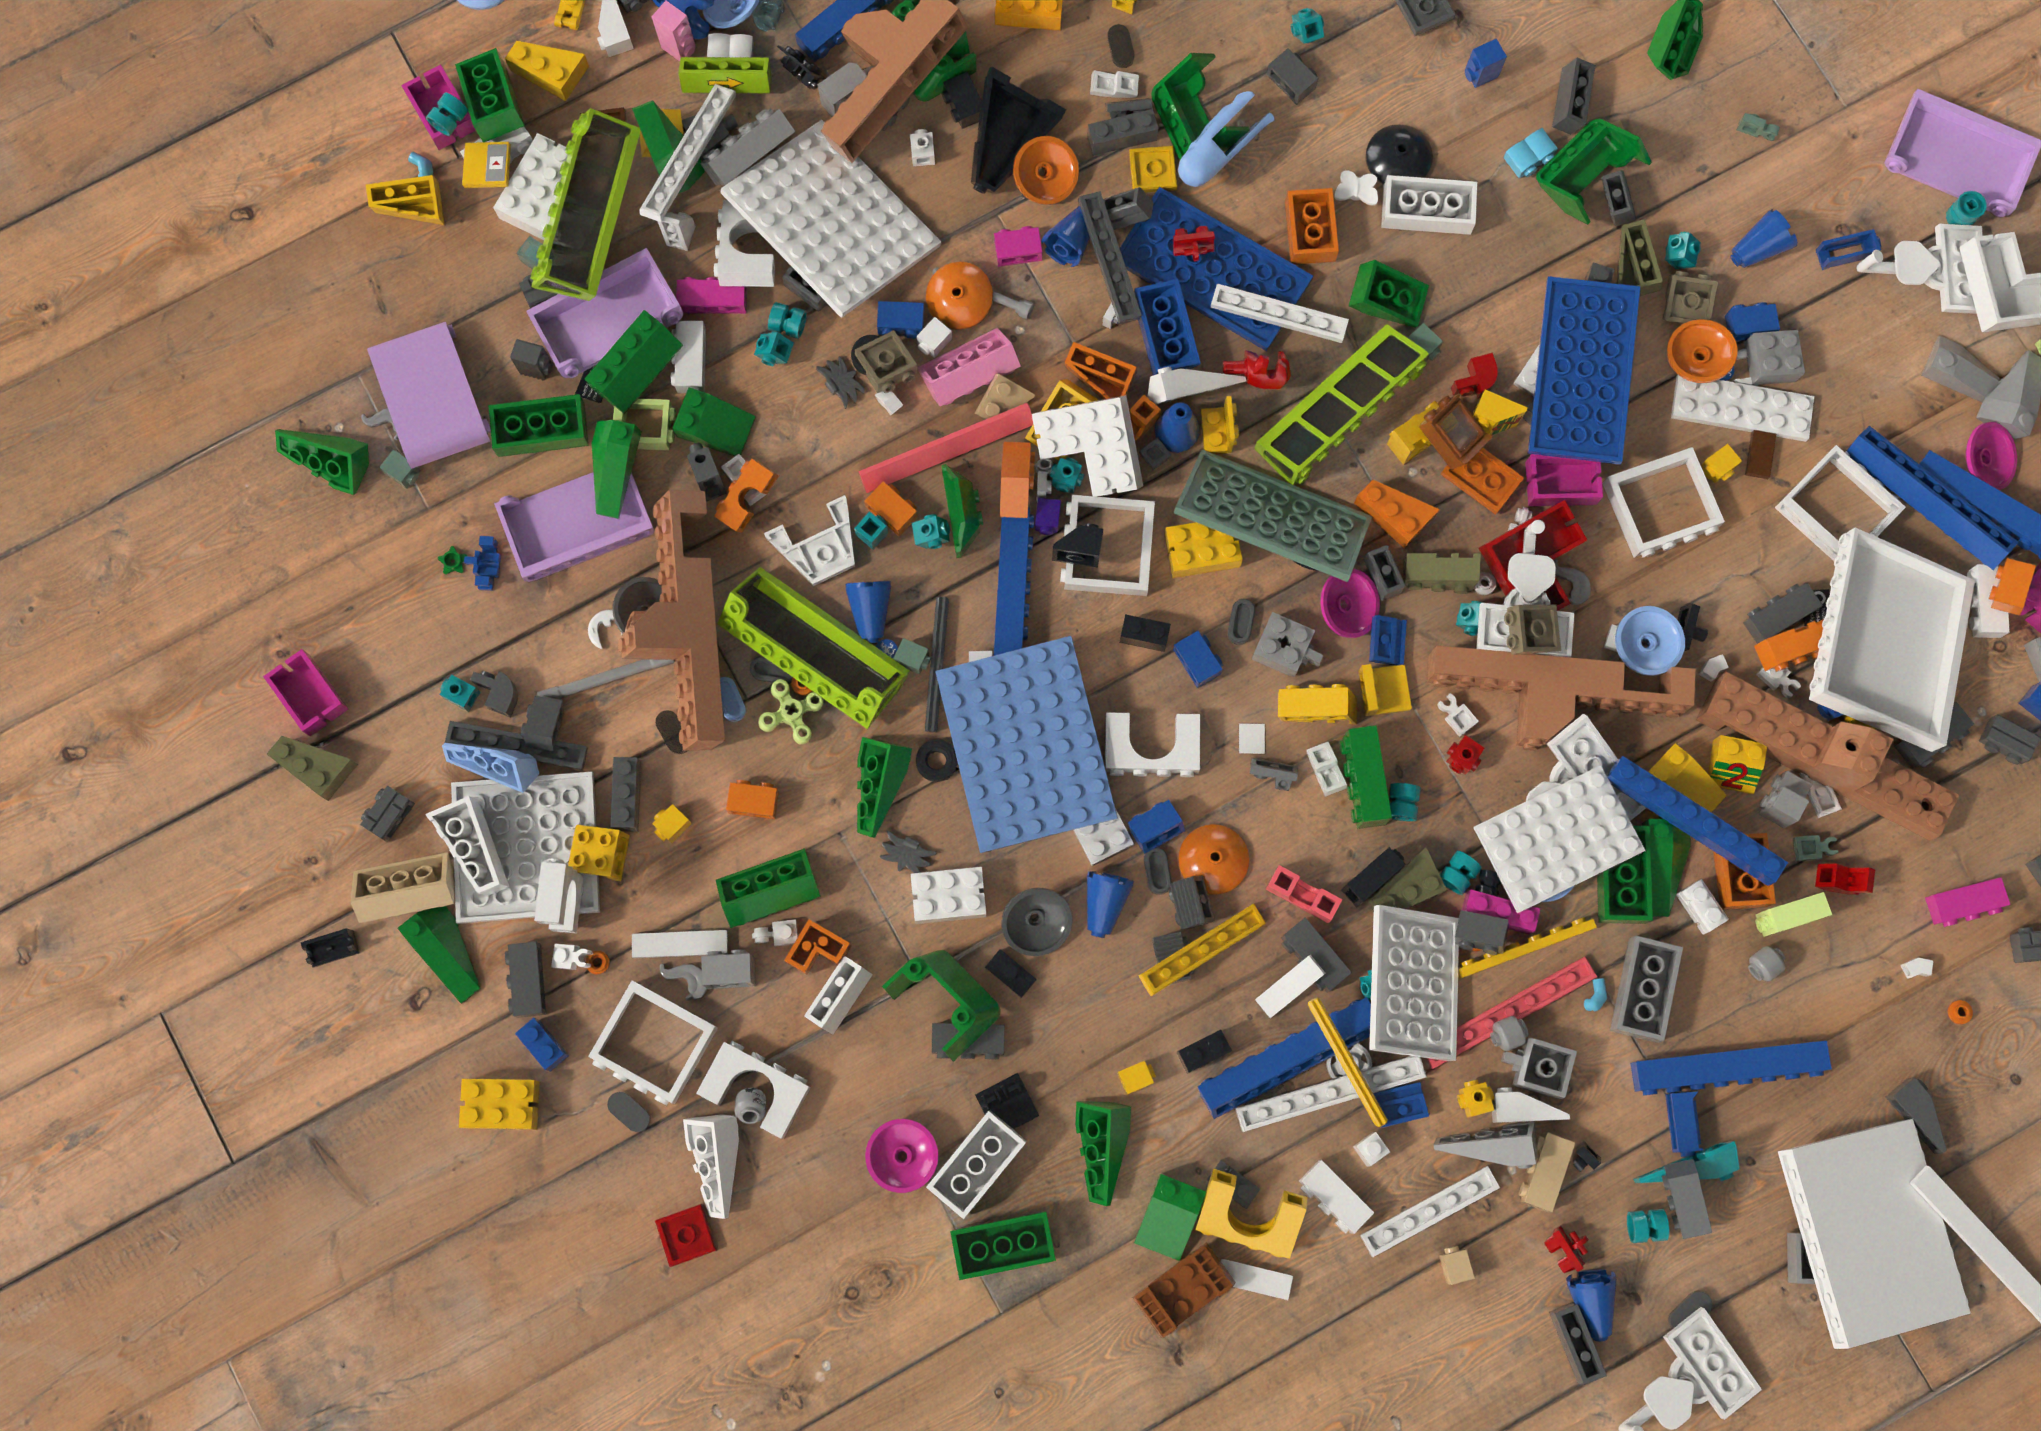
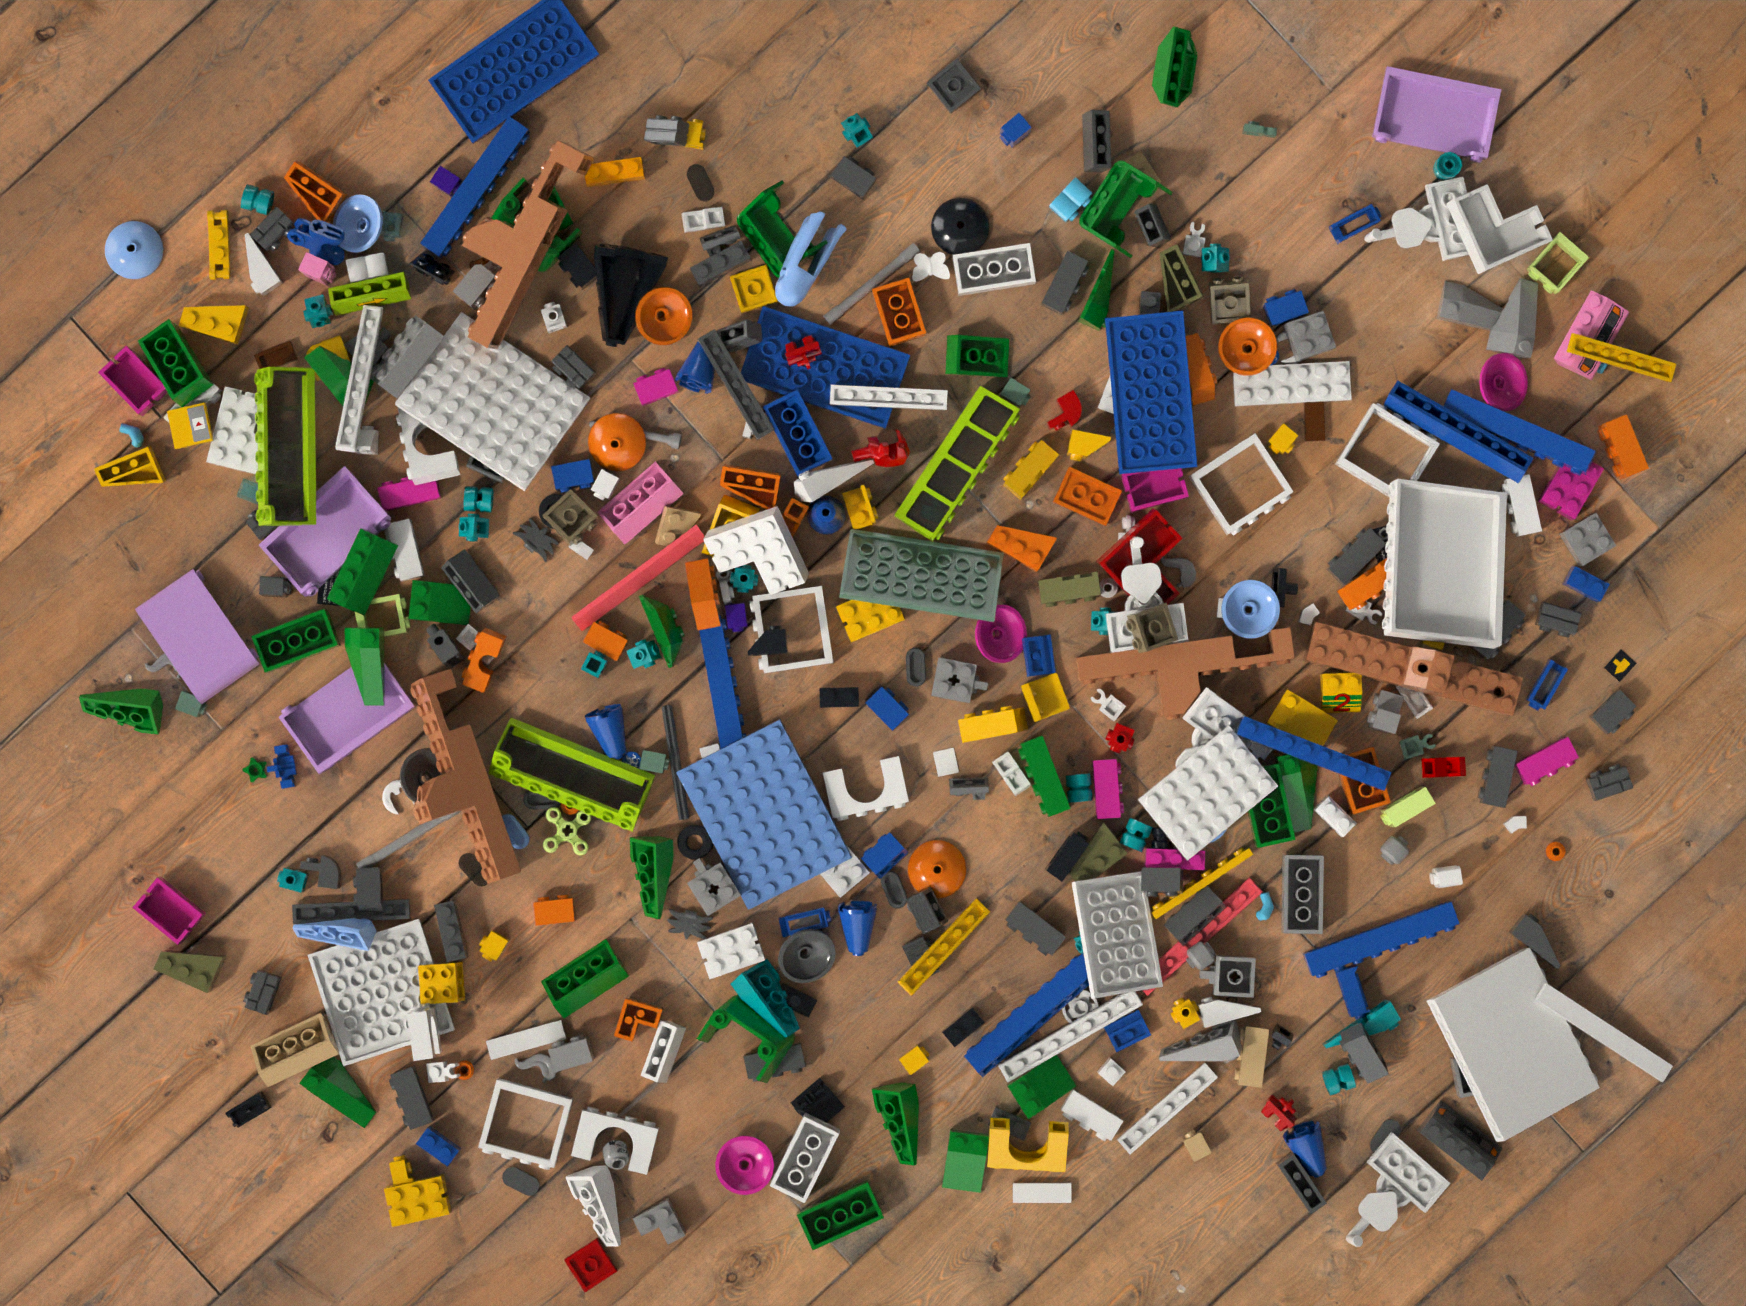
camera: 10 degrees left, 10 degrees up
(450, 107) = (148, 386): teal wheel -> none
(470, 842) = (339, 1003): white wedge -> none
(489, 1063) = (401, 1170): none -> yellow brick
(662, 81) = (317, 311): none -> teal brick
(754, 406) = (470, 581): none -> dark grey brick
(783, 932) = (606, 1011): white plate -> none
(787, 1195) = (662, 1216): none -> light grey brick
(824, 553) = (560, 691): white wing -> none
(930, 204) = (573, 368): none -> dark grey brick
(947, 802) = (717, 876): none -> light grey hinge
(973, 952) = (762, 992): none -> teal wedge
(1055, 880) = (805, 920): none -> blue window
(1155, 454) = (812, 541): dark grey plate -> none
(1183, 1290) = (988, 1214): dark orange plate -> none
(1243, 212) = (904, 257): none -> light grey piece
(1282, 1147) = (1041, 1086): none -> green slope
(1290, 986) = (1019, 959): white tile -> none
(1310, 899) = (1014, 882): coral arch -> none
(1347, 1062) = (1077, 1010): yellow axle -> none
(1384, 572) = (1023, 601): dark grey brick -> none
(1436, 811) = (1107, 789): none -> dark pink brick
(1454, 431) = (1055, 470): dark orange window -> none
(1506, 239) = (1065, 283): none -> dark grey brick
(1511, 984) = (1194, 915): none -> dark grey brick
(1534, 273) = (1098, 302): none -> green wedge
(1644, 368) = (1201, 379): none -> orange wedge
(1661, 229) = (1194, 244): none -> white plate
(1764, 240) = (1281, 235): blue cone -> none
(1783, 1339) = (1460, 1140): none -> dark grey slope
(1825, 1009) = (1446, 876): none -> white brick
(1906, 906) = (1497, 776): none -> dark grey brick
(1982, 813) = (1546, 685): none -> blue window
(2012, 586) = (1536, 494): orange brick -> none

